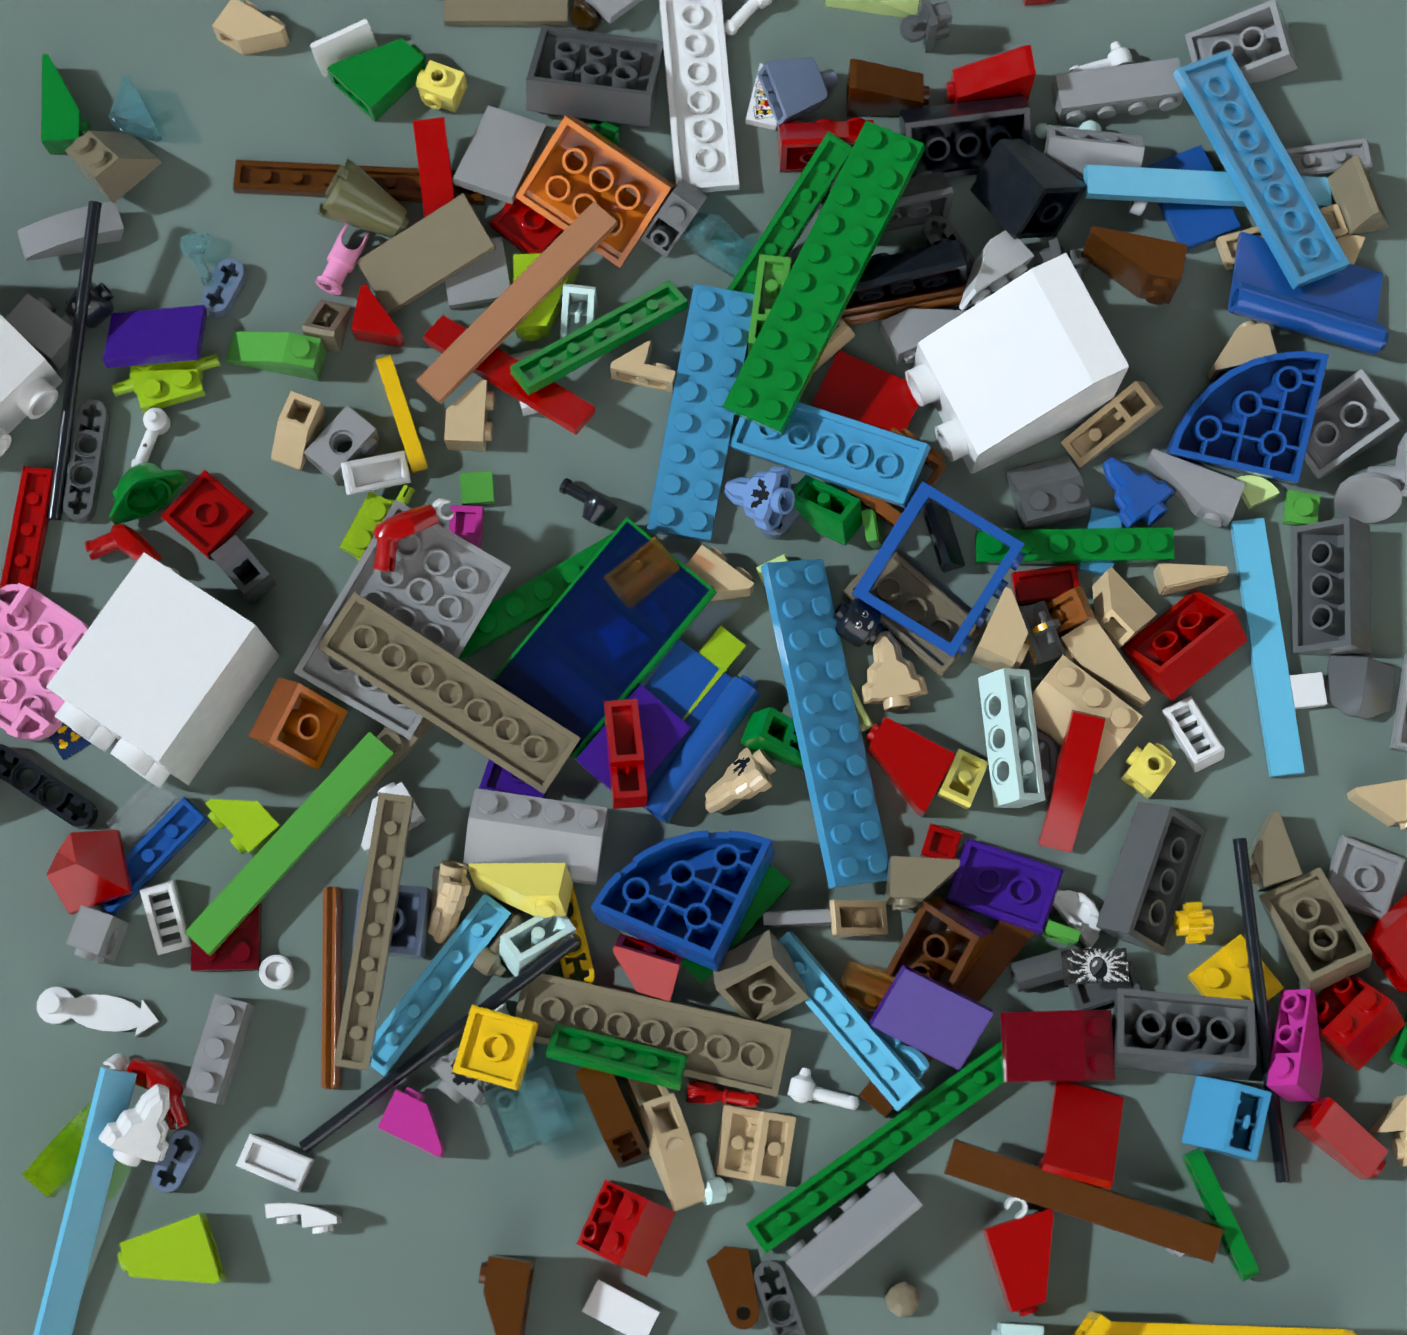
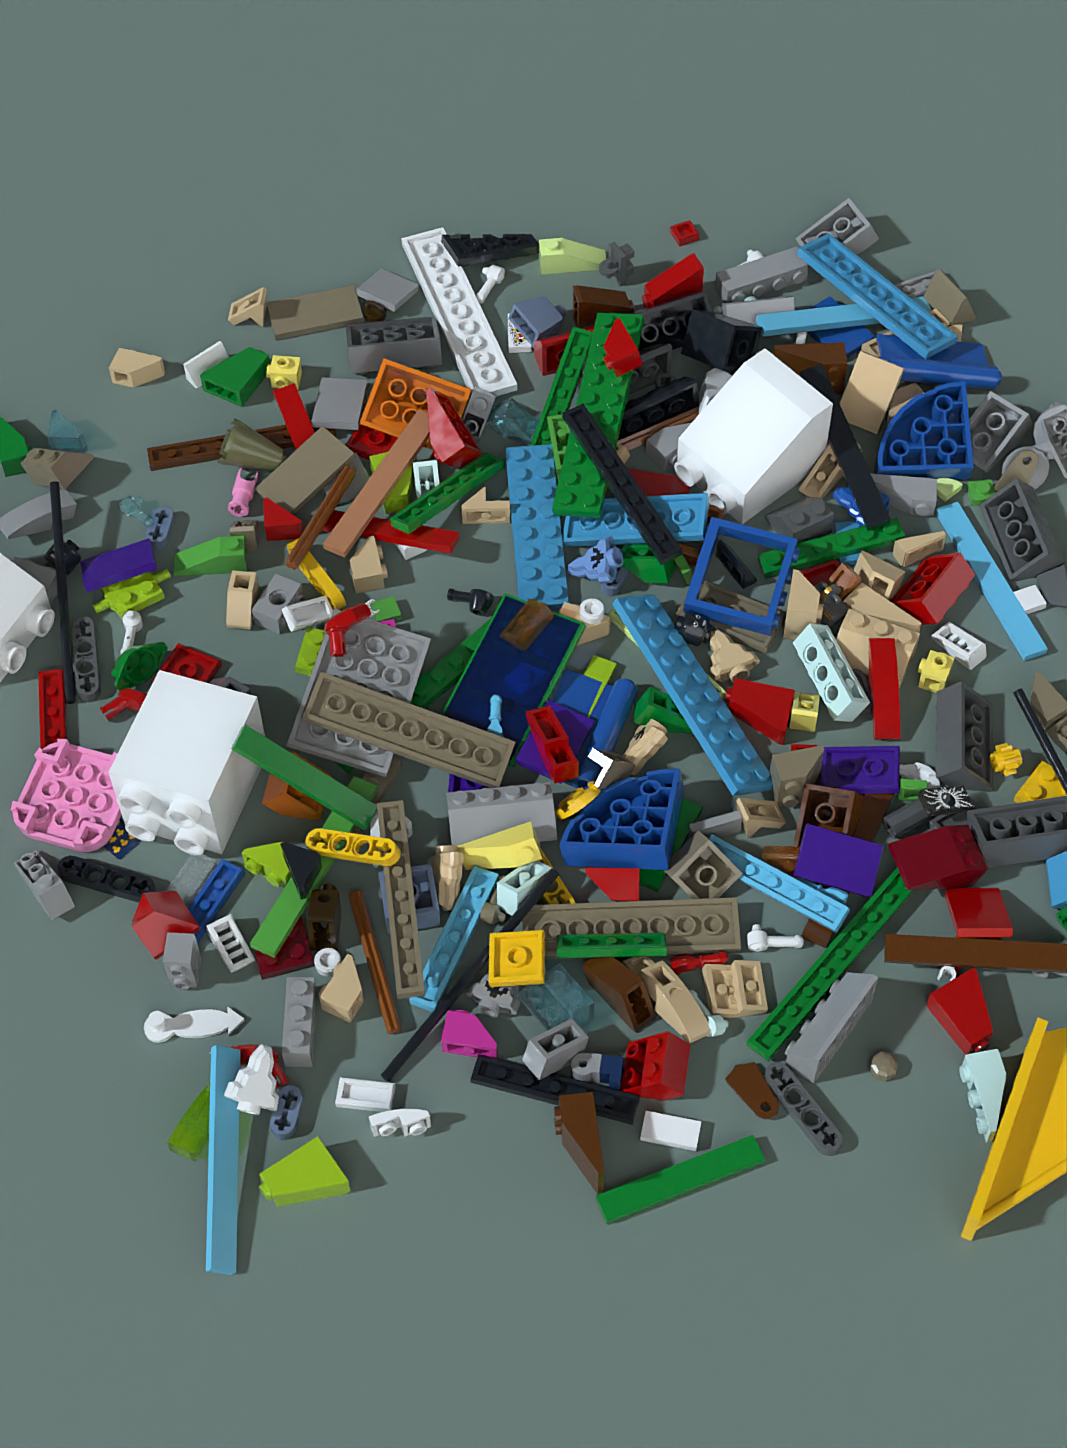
camera: 15 degrees left, 20 degrees down
(267, 852) = (302, 865): none -> black slope
(284, 917) = (324, 908): none -> dark brown torso
(285, 1021) = (344, 992): none -> tan slope
(294, 739) = (304, 777): none -> green tile
(333, 846) = (351, 850): none -> yellow beam
(426, 333) = (320, 517): none -> dark orange axle
(500, 1218) = (522, 1082): none -> black tile
(509, 1177) = (554, 1048): none -> light grey brick
(543, 1203) = (598, 1069): none -> leg
(563, 709) = (495, 716): none -> medium azure piece
(623, 246) = (448, 432): none -> slope
(635, 840) = (576, 800): none -> yellow tile
(690, 807) = (614, 767): none -> dark tan panel
(731, 570) = (591, 611): none -> white tile
(820, 398) = (622, 484): none -> black tile
(874, 198) = (620, 350): none -> red slope
(1136, 410) = (849, 455): none -> black tile
(1199, 325) = (870, 391): none -> tan tile
(1357, 502) = (1019, 469): none -> dark tan piece

